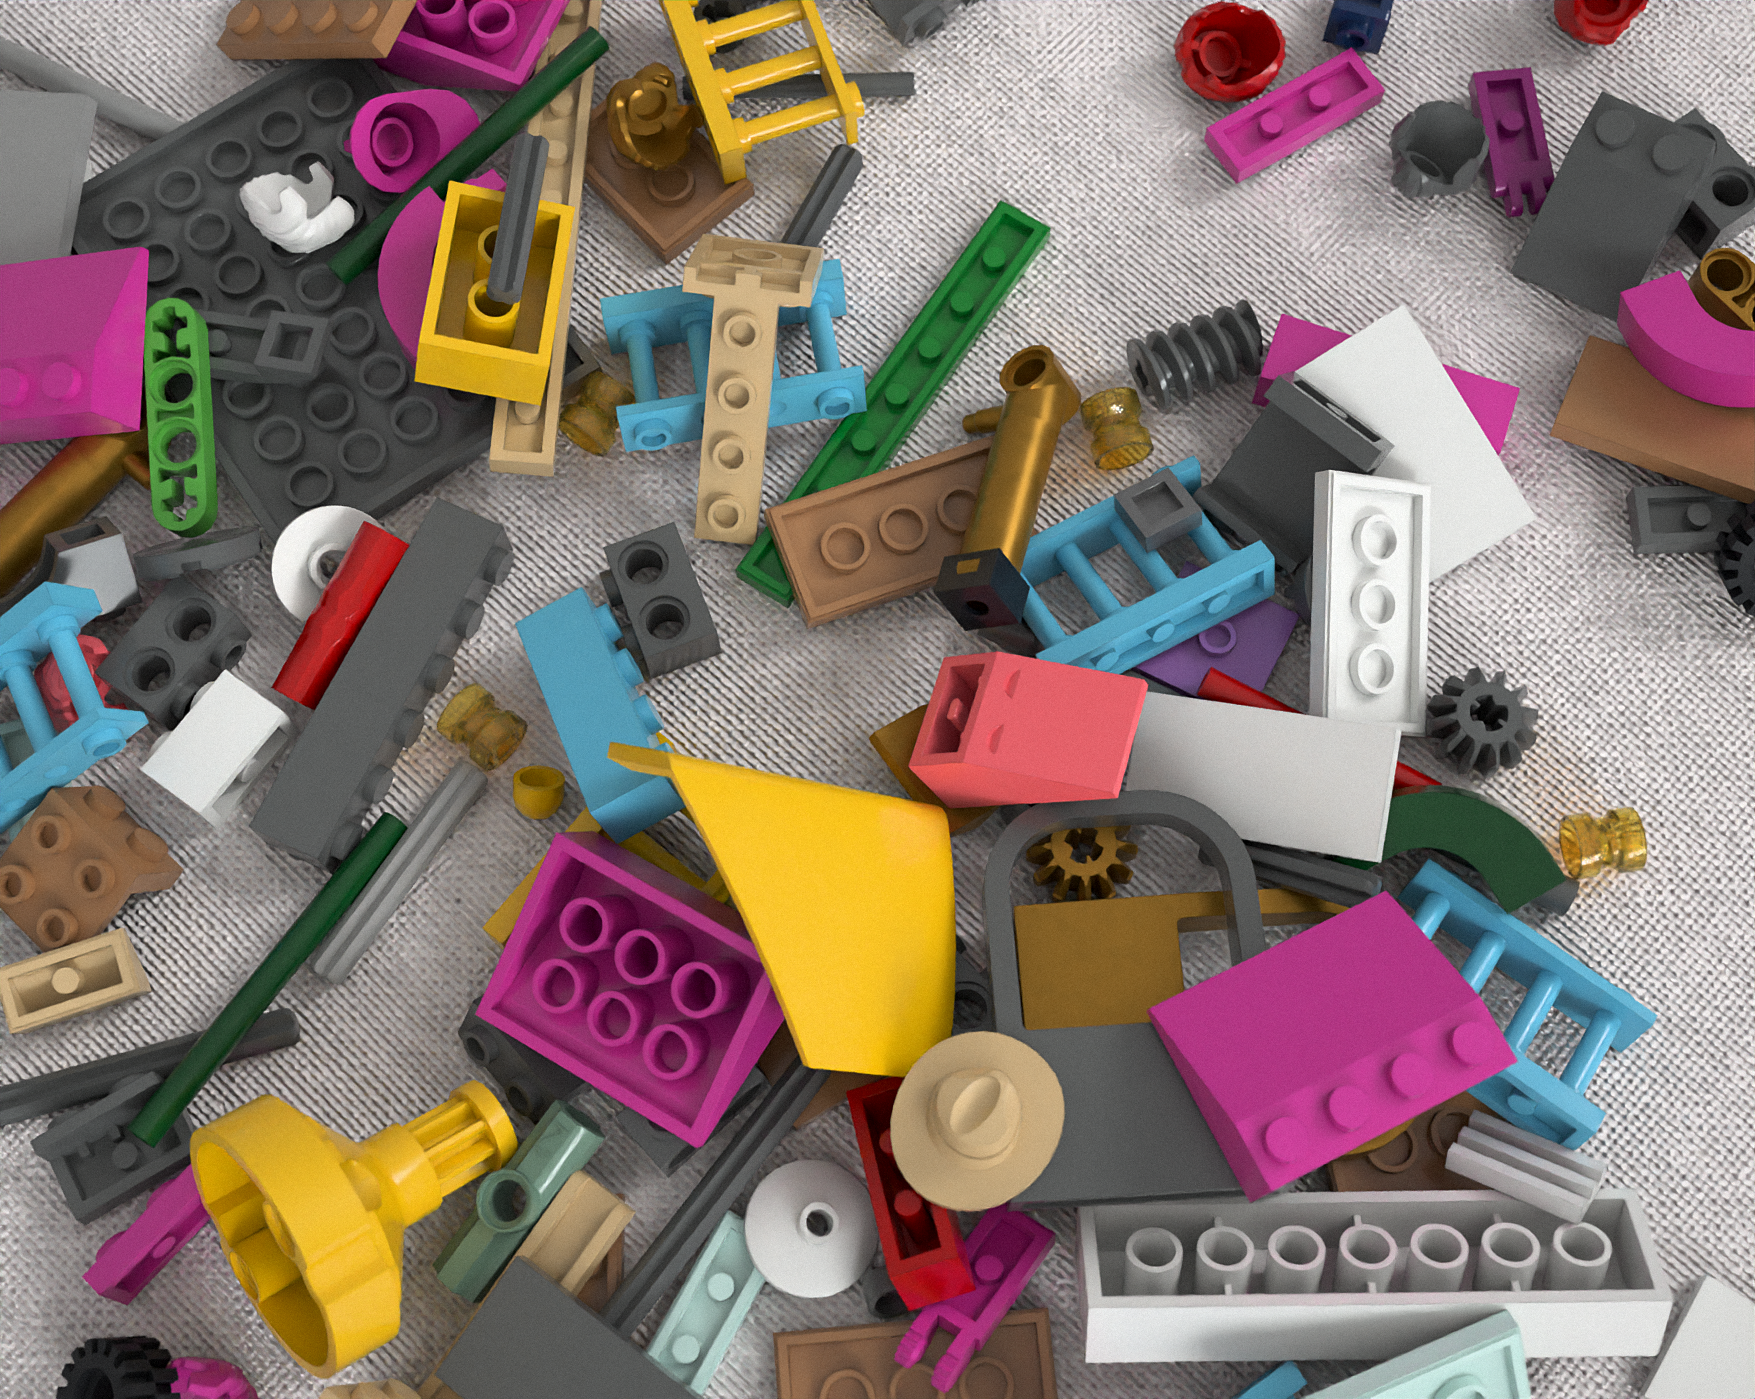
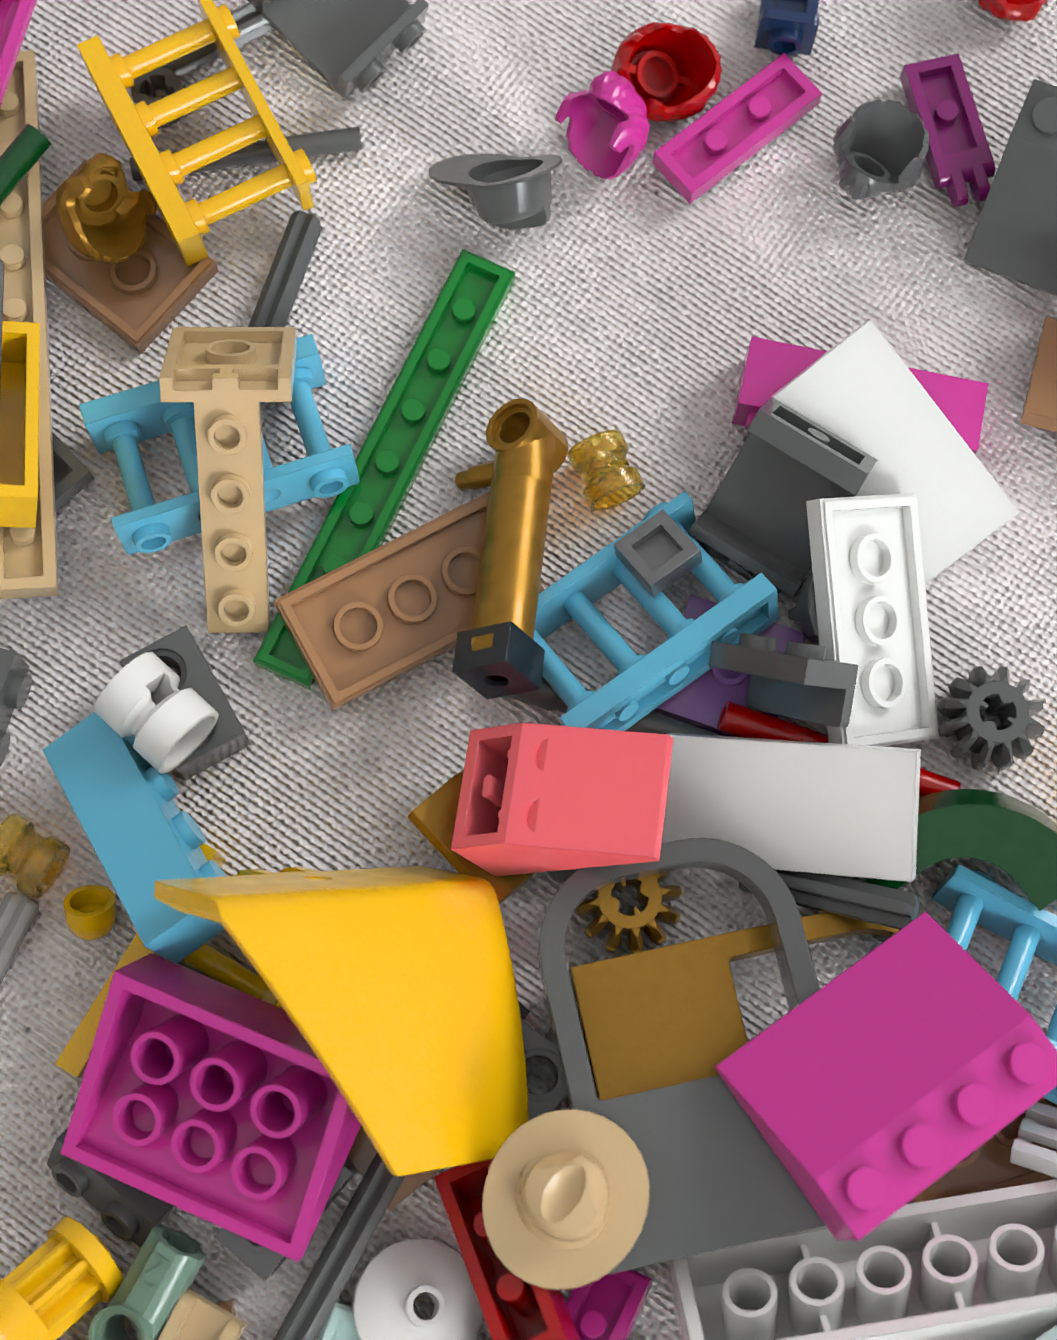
camera: 15 degrees left, 5 degrees up
(593, 417) = (89, 524): clear yellow wheel -> none
(626, 587) = (148, 704): none -> white wheel
(1051, 147) = (503, 188): none -> dark grey piece
(1160, 95) = (605, 125): none -> dark pink hair
(1197, 353) = (674, 384): dark grey piece -> none
(1277, 648) = (790, 682): none -> dark grey bracket

